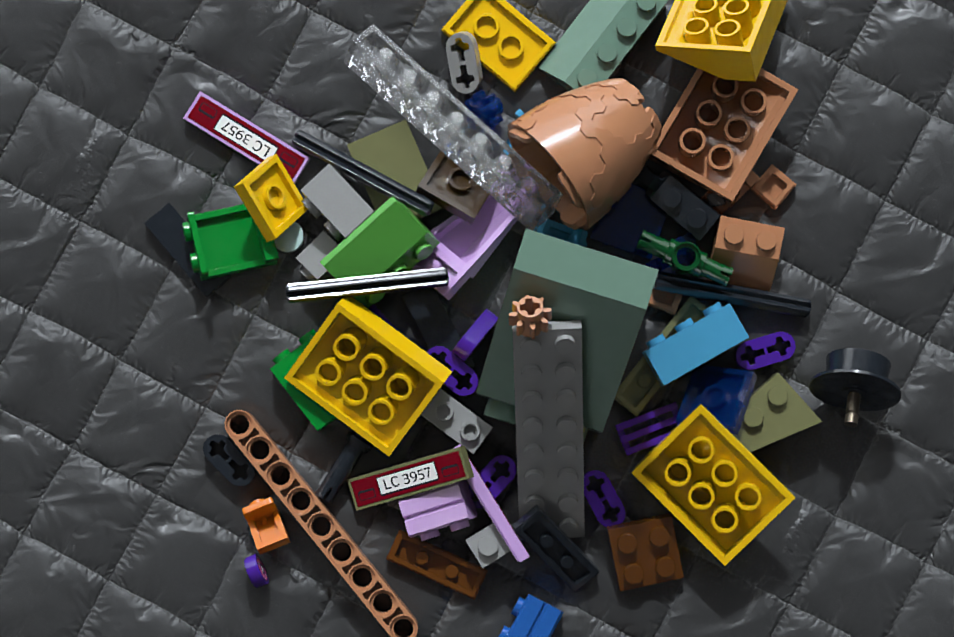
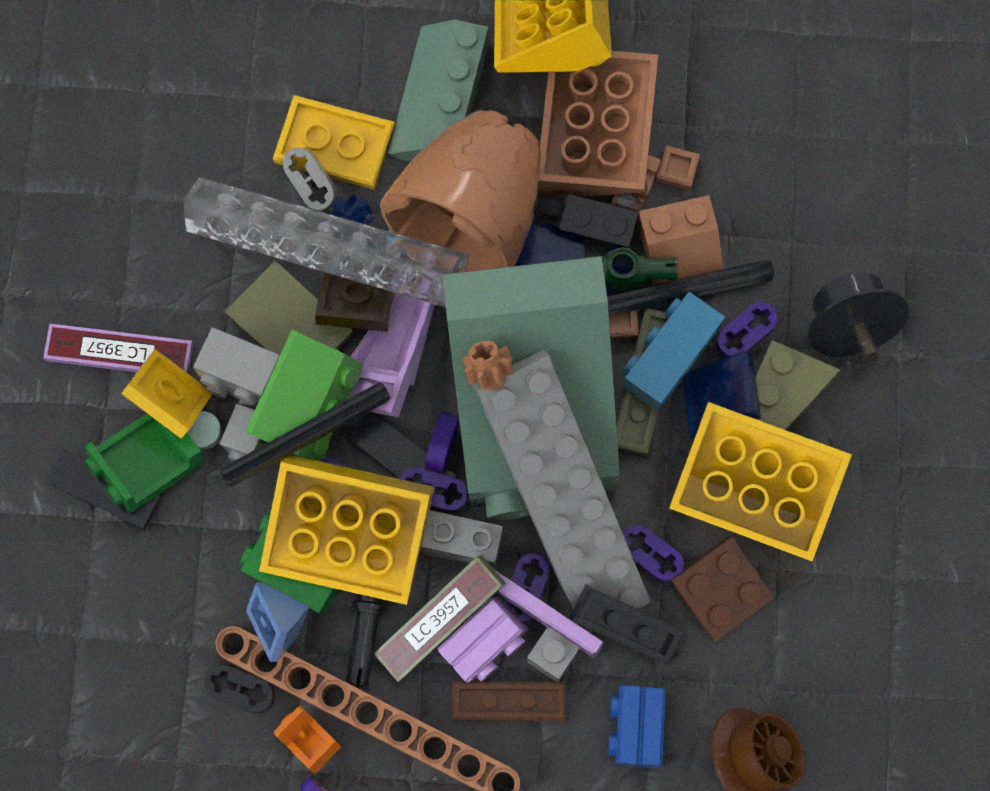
camera: 20 degrees left, 10 degrees down
(280, 420) = (275, 619): none -> medium blue slope
(362, 173) = (252, 329): black axle -> none
(625, 438) = (646, 482): dark purple tile -> none

